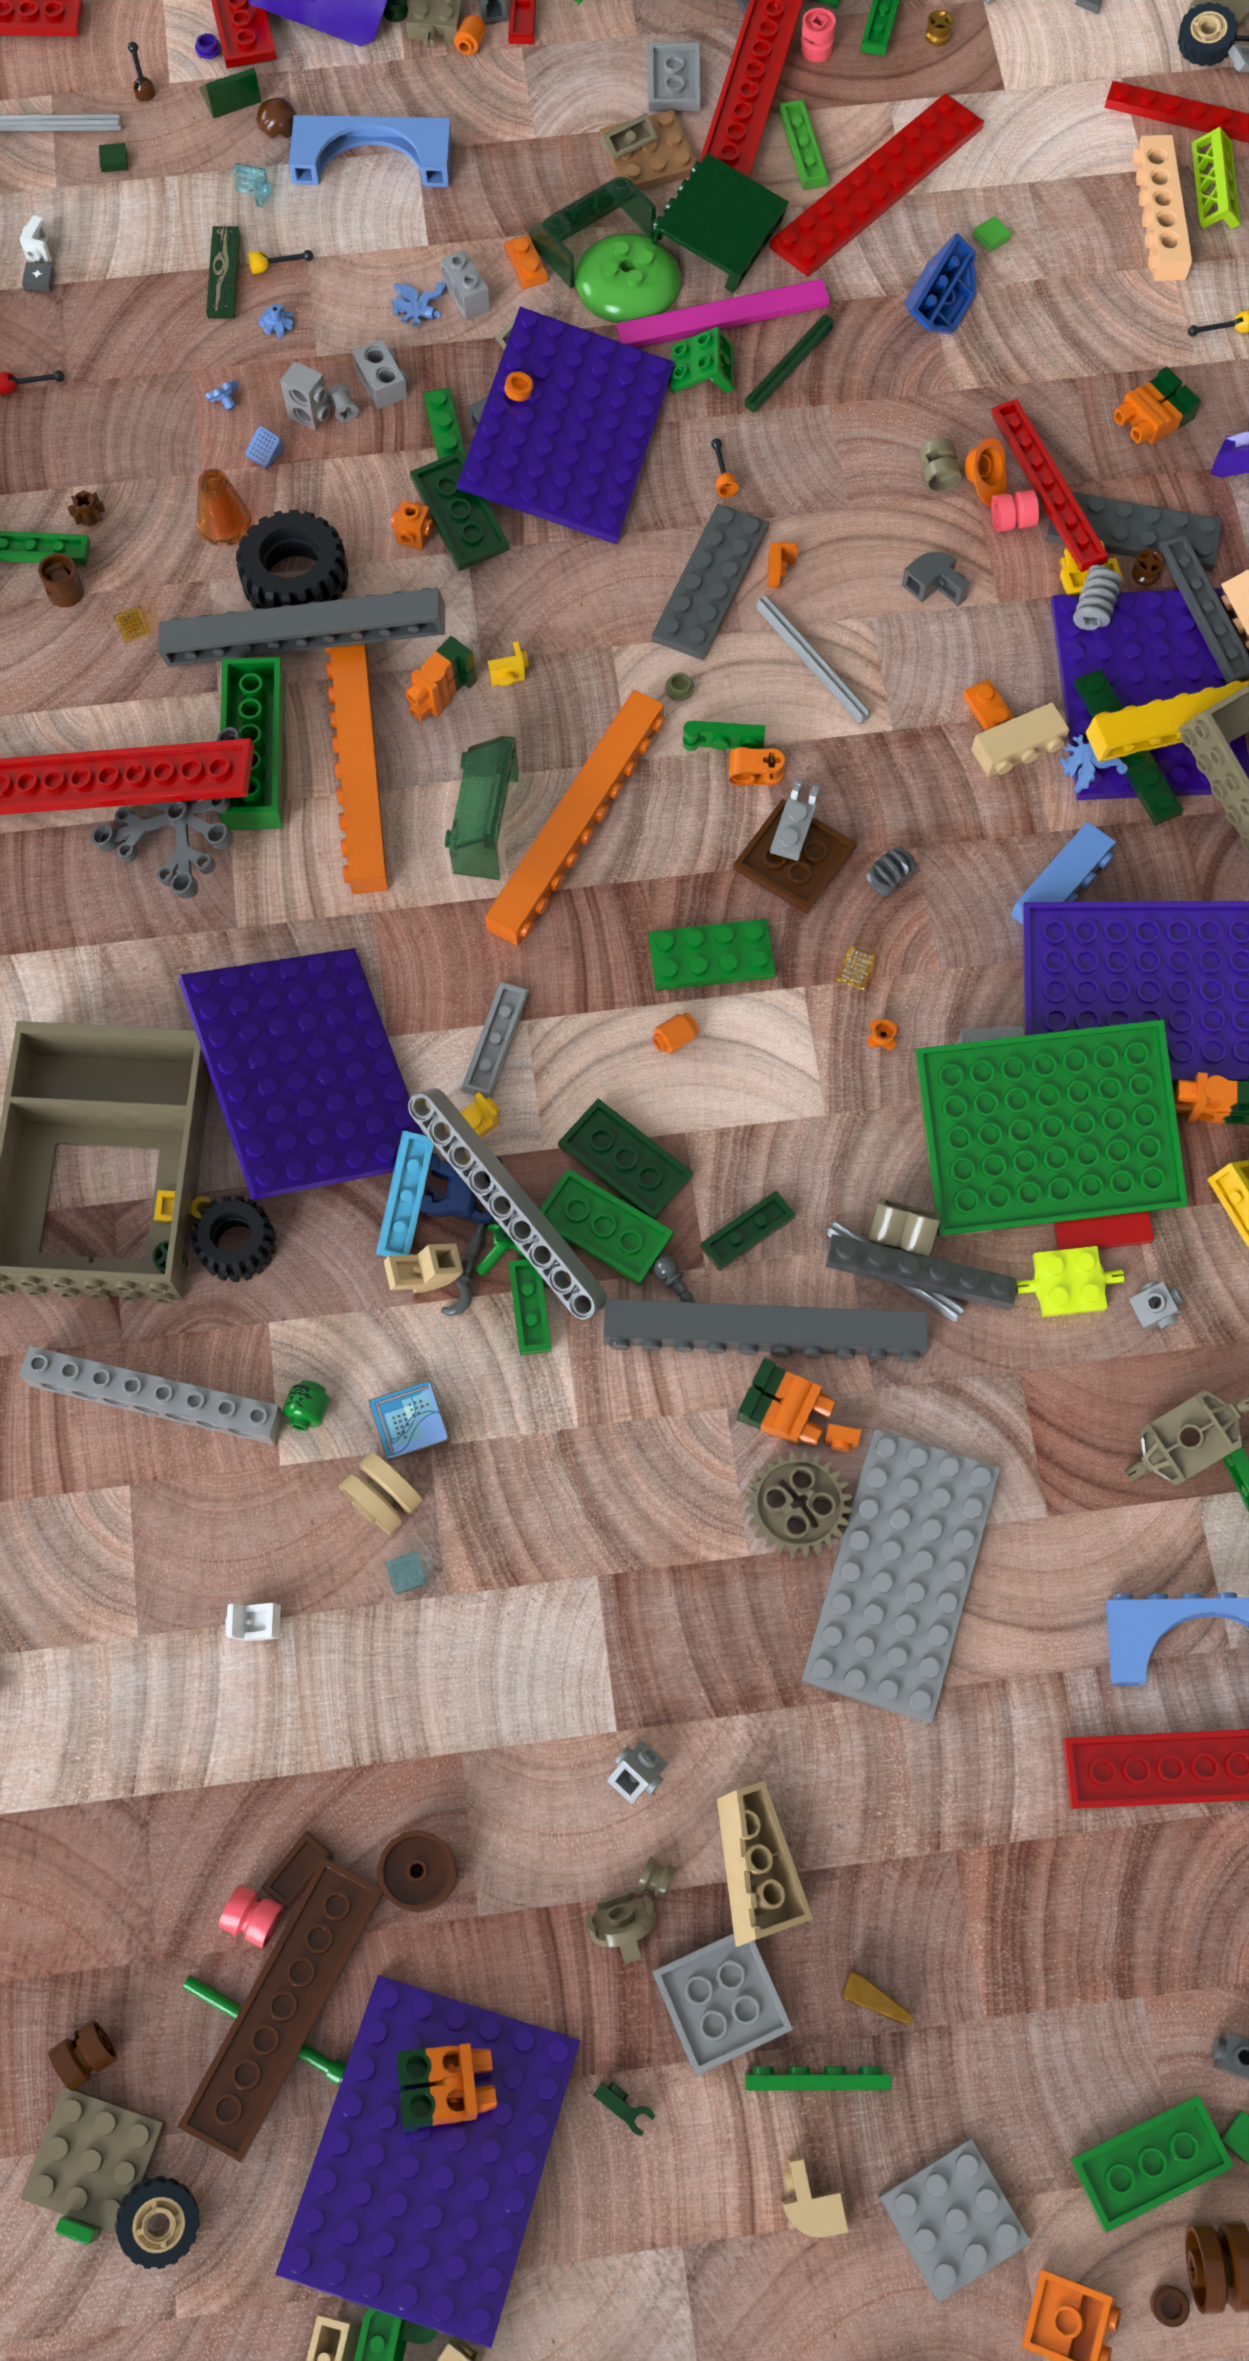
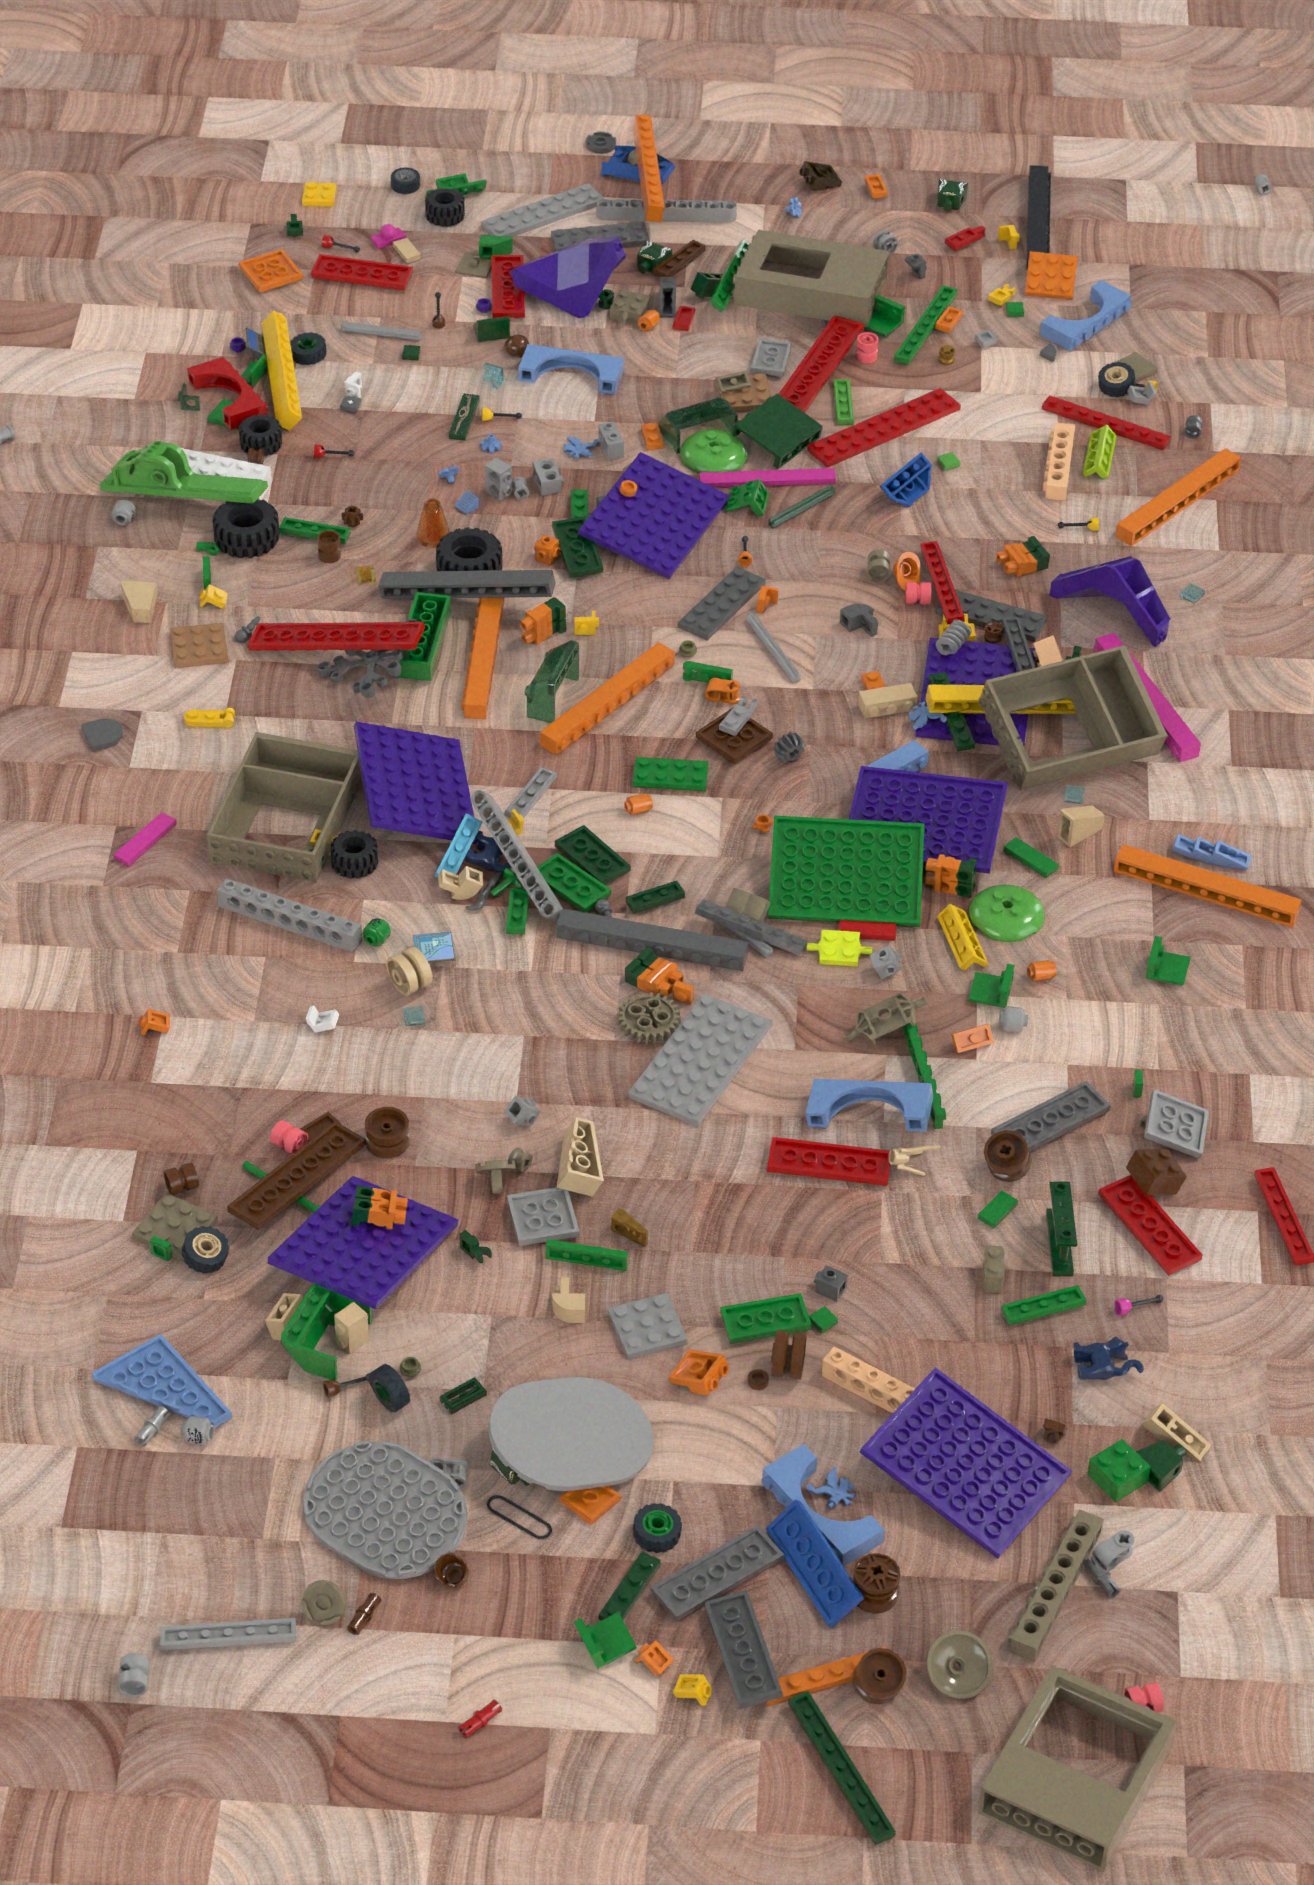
camera: 10 degrees right, 25 degrees down
(856, 967) = (756, 790): clear yellow slope -> none

